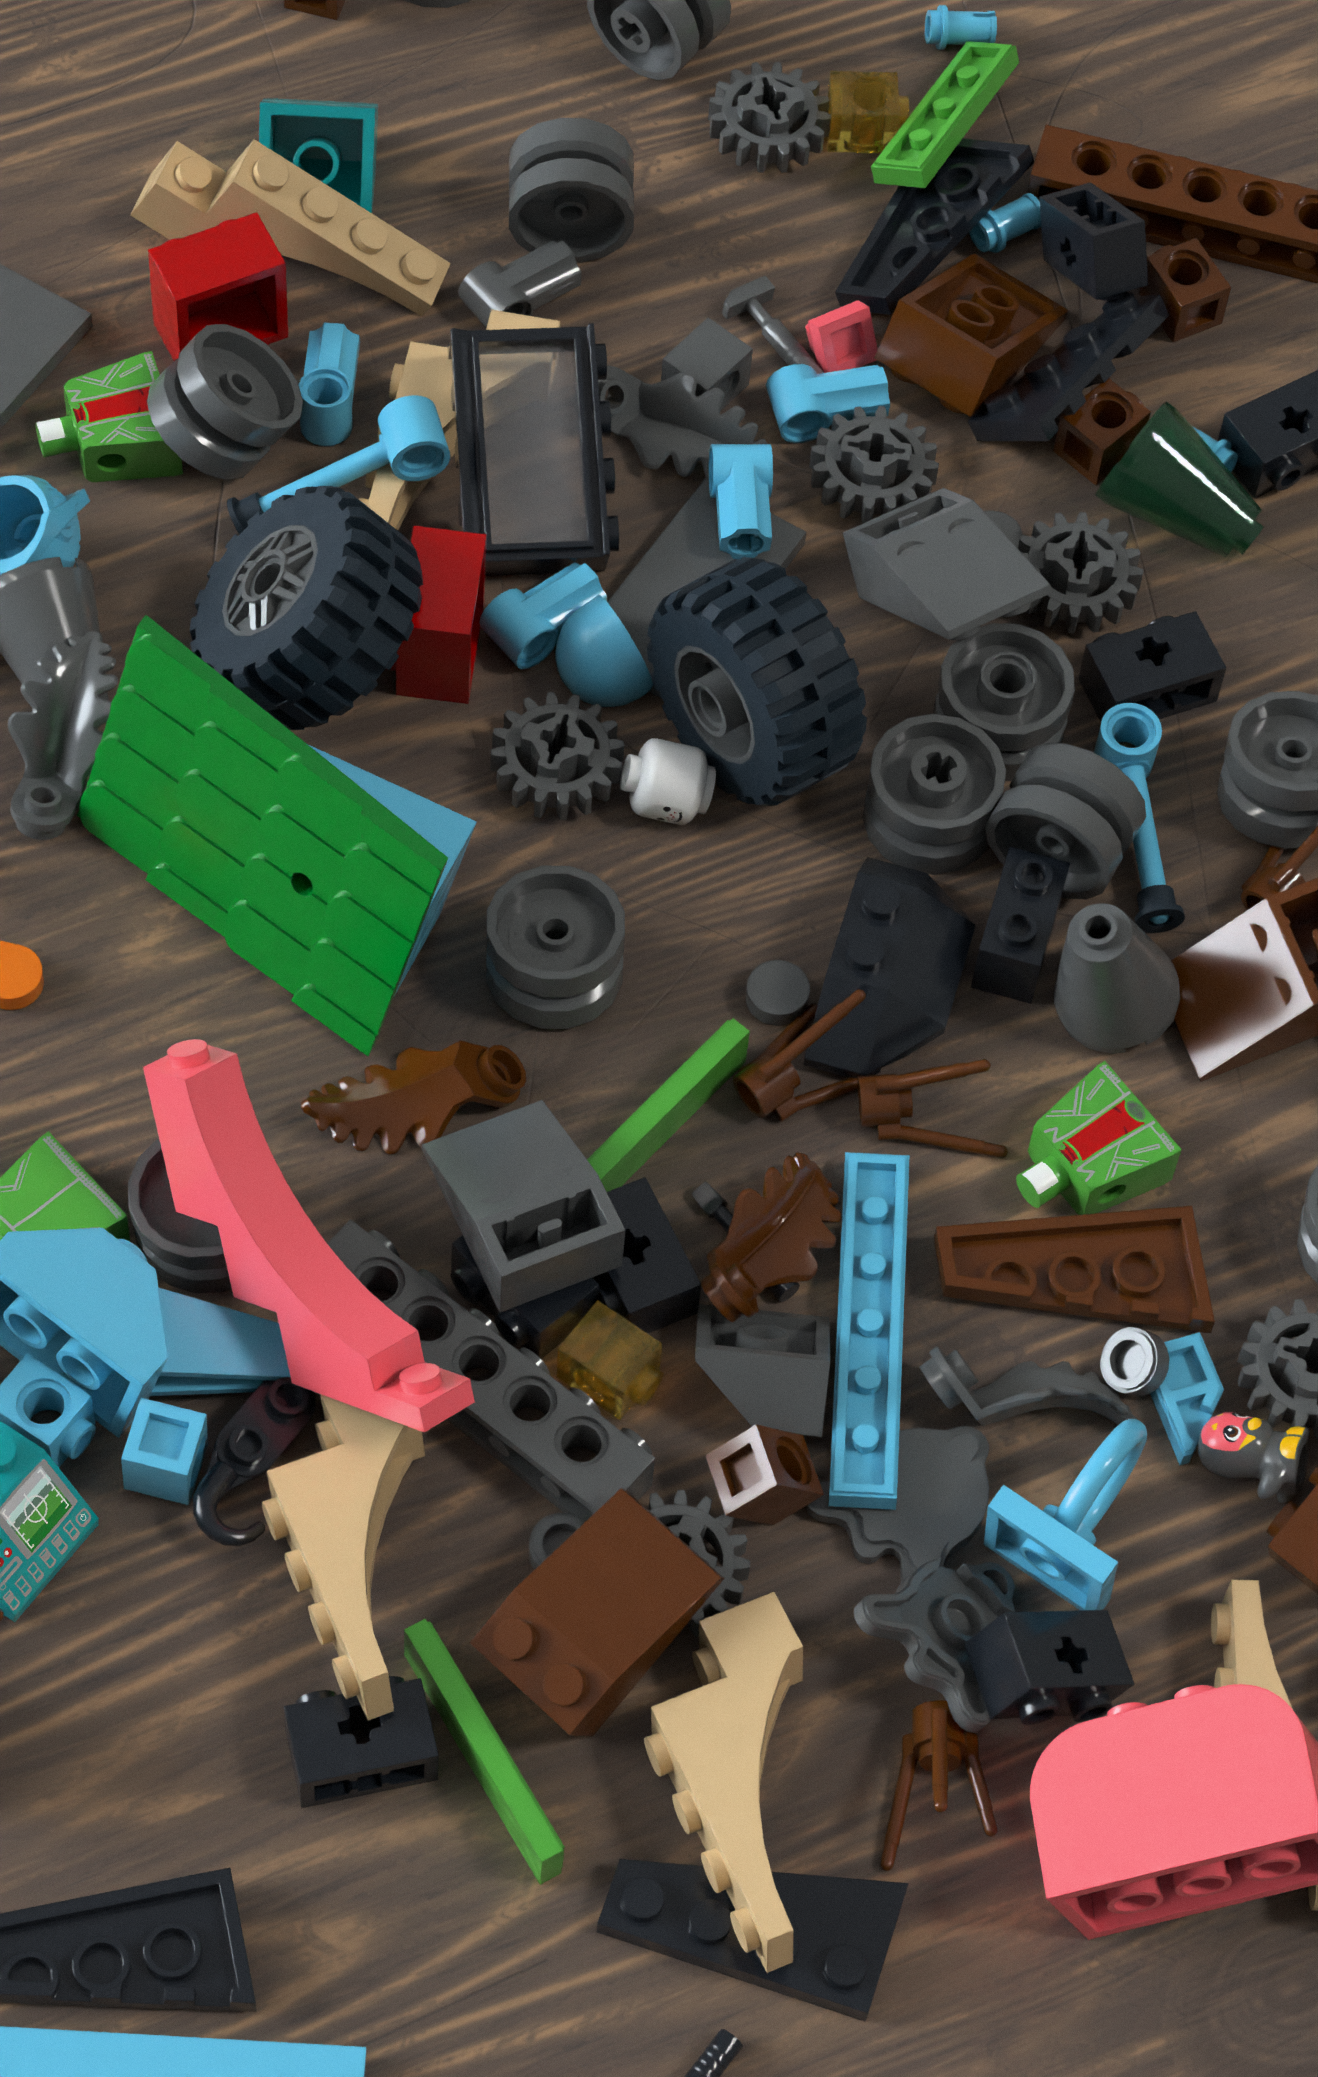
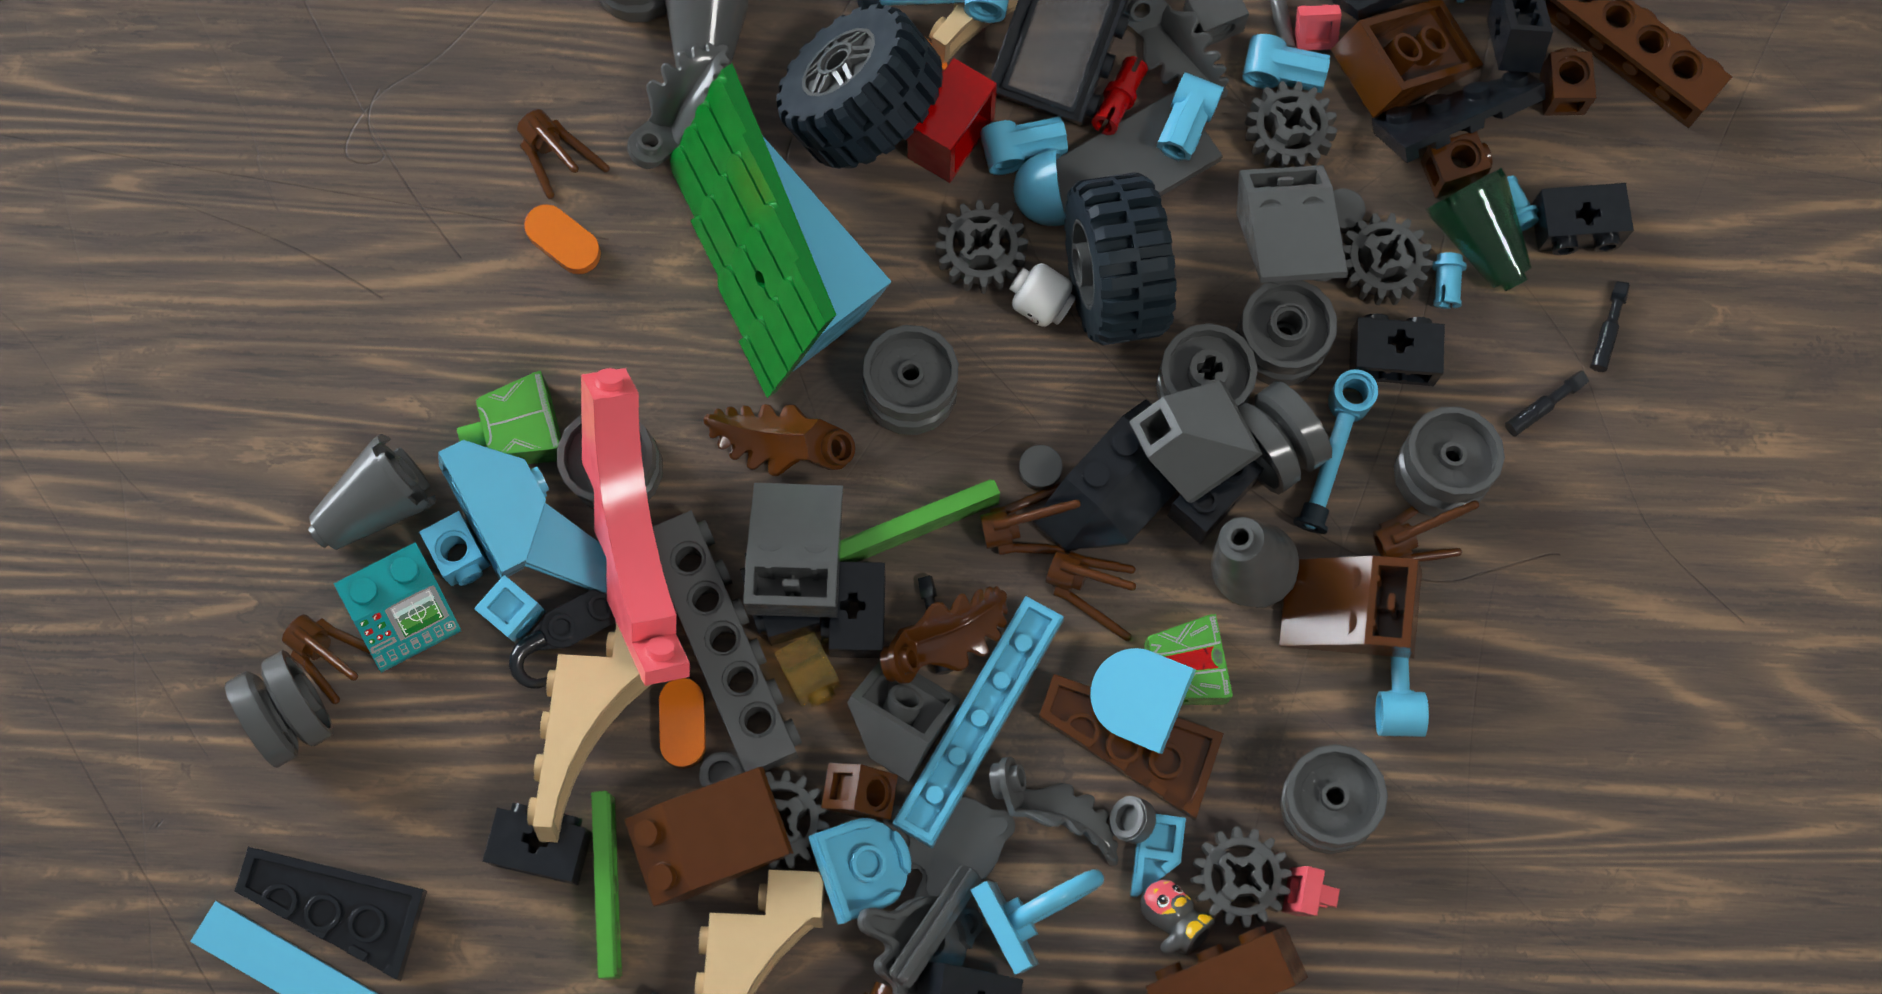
camera: 30 degrees right, 15 degrees up
(473, 1505) = (682, 723): none -> orange tile
(638, 510) = (1119, 95): none -> red pin
(816, 1564) = (861, 866): none -> medium azure tile
(959, 1589) = (934, 927): none -> dark grey axle
(974, 848) = (1196, 438): none -> dark grey slope
(1065, 1196) = (1140, 696): none -> medium azure tile
(1162, 557) = (1448, 279): none -> medium azure pin

